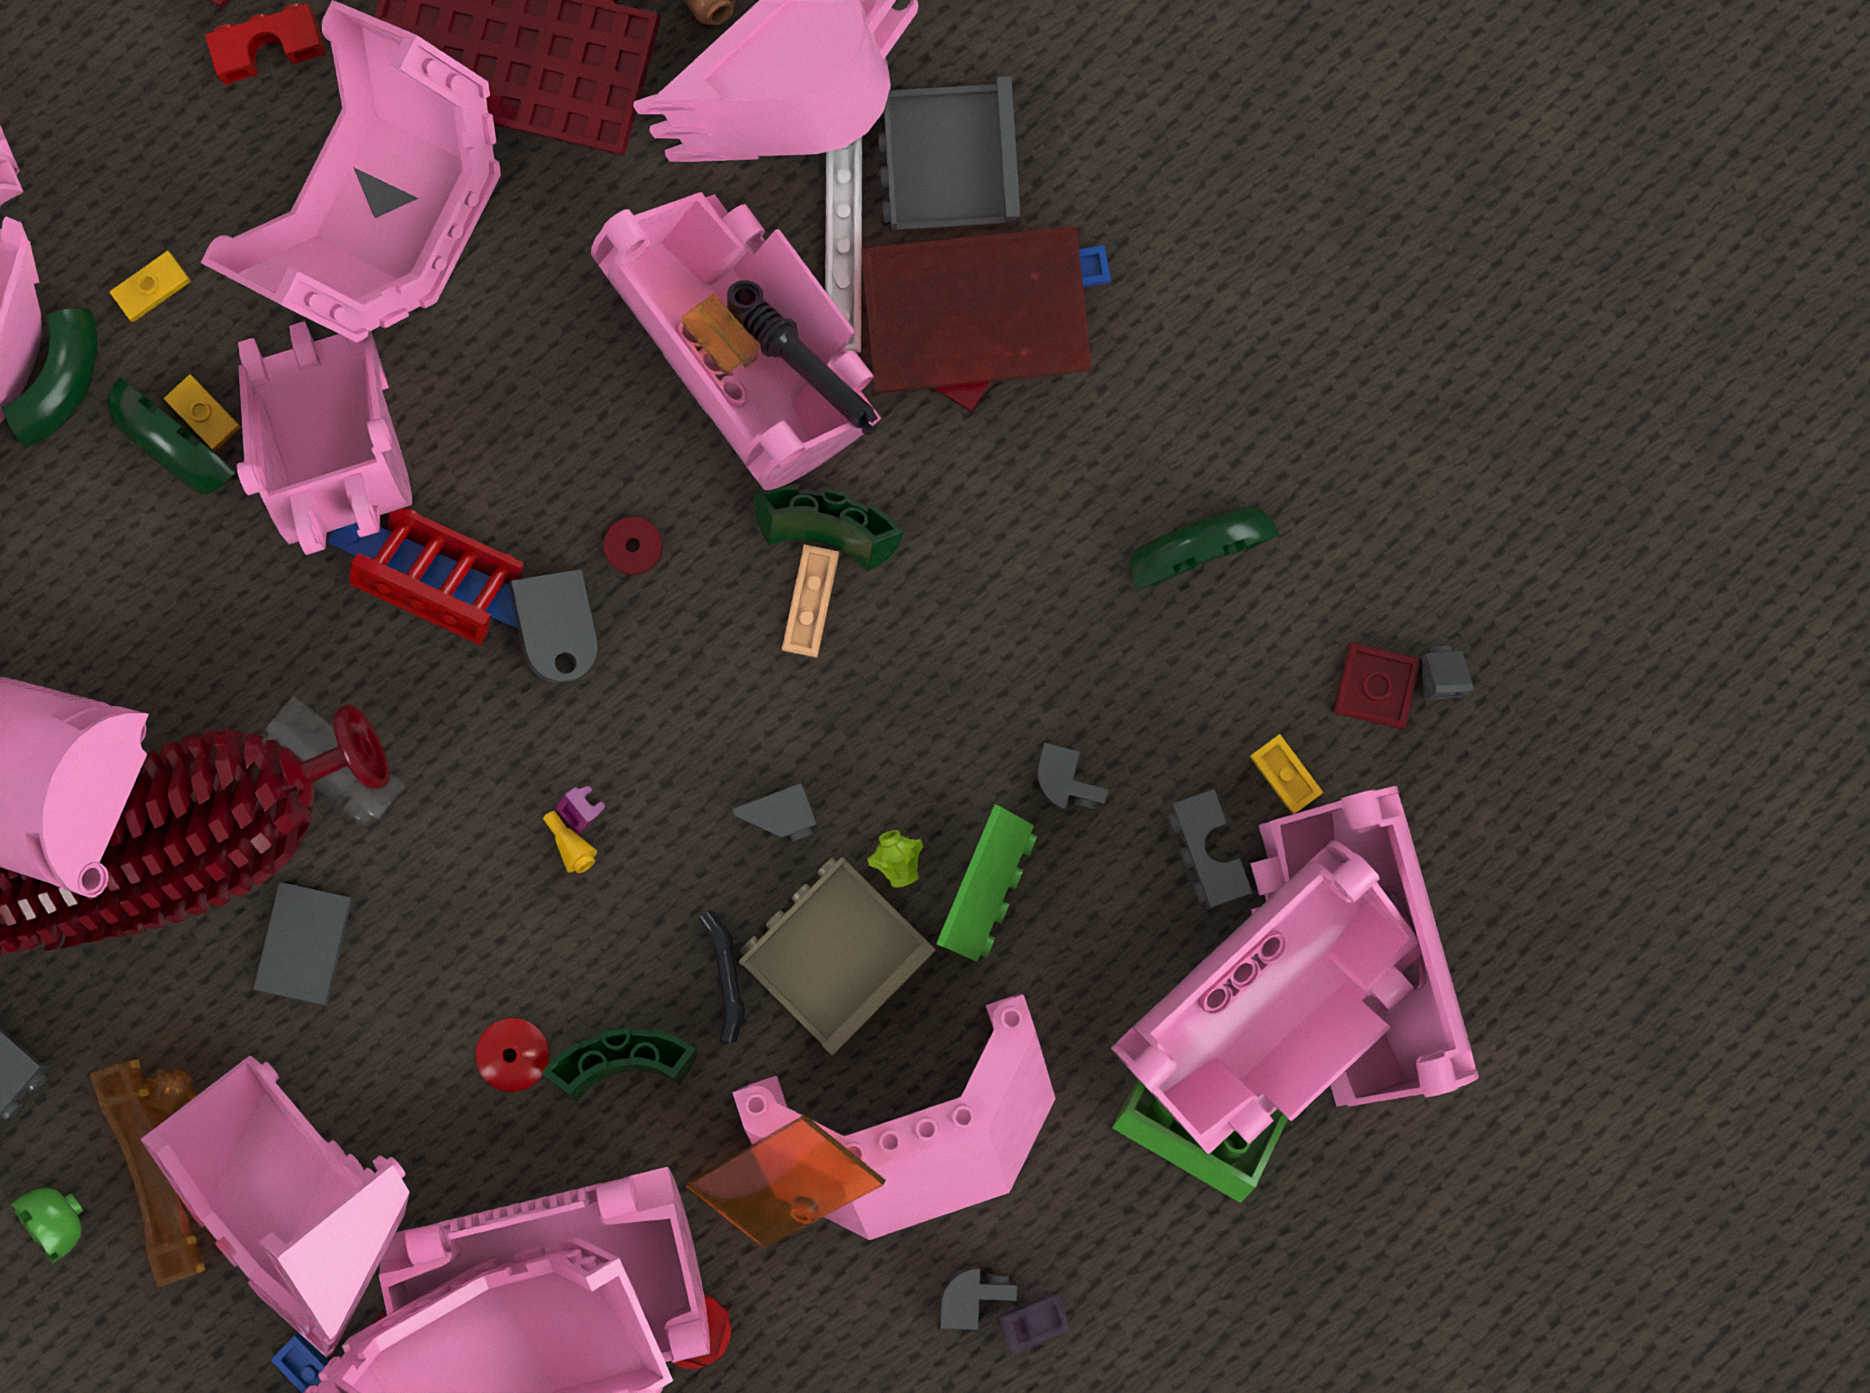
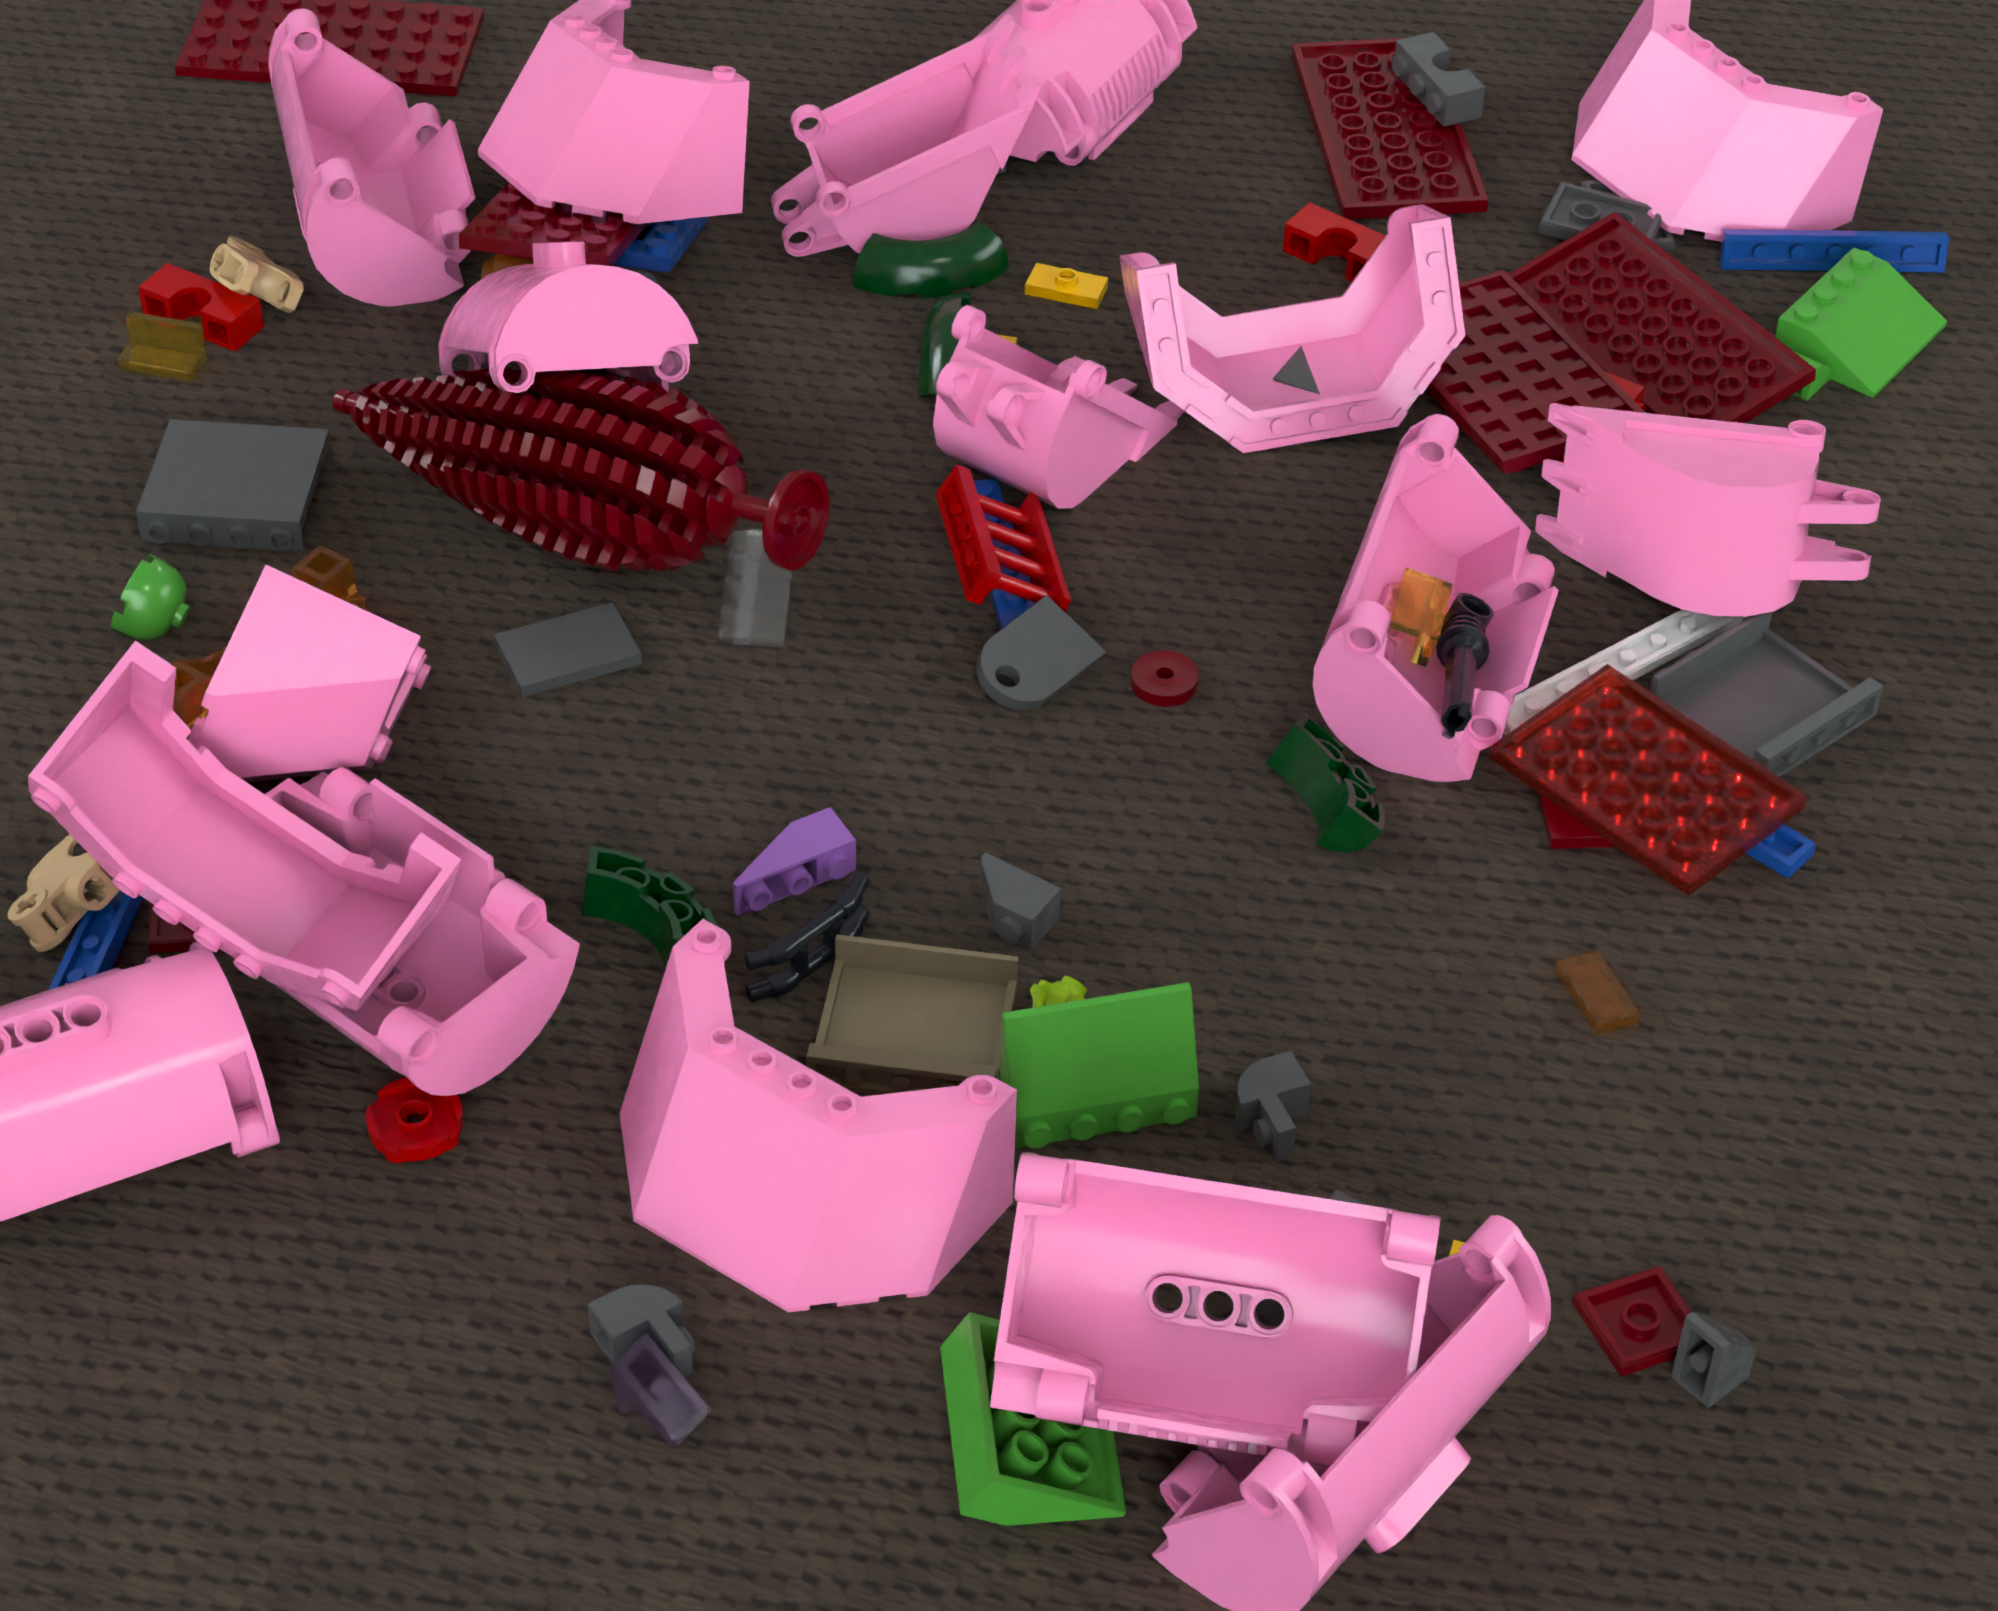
camera: 50 degrees right, 40 degrees down
(530, 1050) = (569, 841): red dish -> none
(574, 850) = (832, 781): yellow cone -> none
(577, 810) = (878, 762): magenta tile -> none
(636, 923) = (797, 859): none -> medium lavender slope
(785, 1181) = (643, 1036): clear orange piece -> none
(810, 601) = (1244, 825): light nougat tile -> none
(1116, 492) = (1597, 992): none -> clear orange tile
(1200, 543) = (1644, 1080): dark green brick -> none

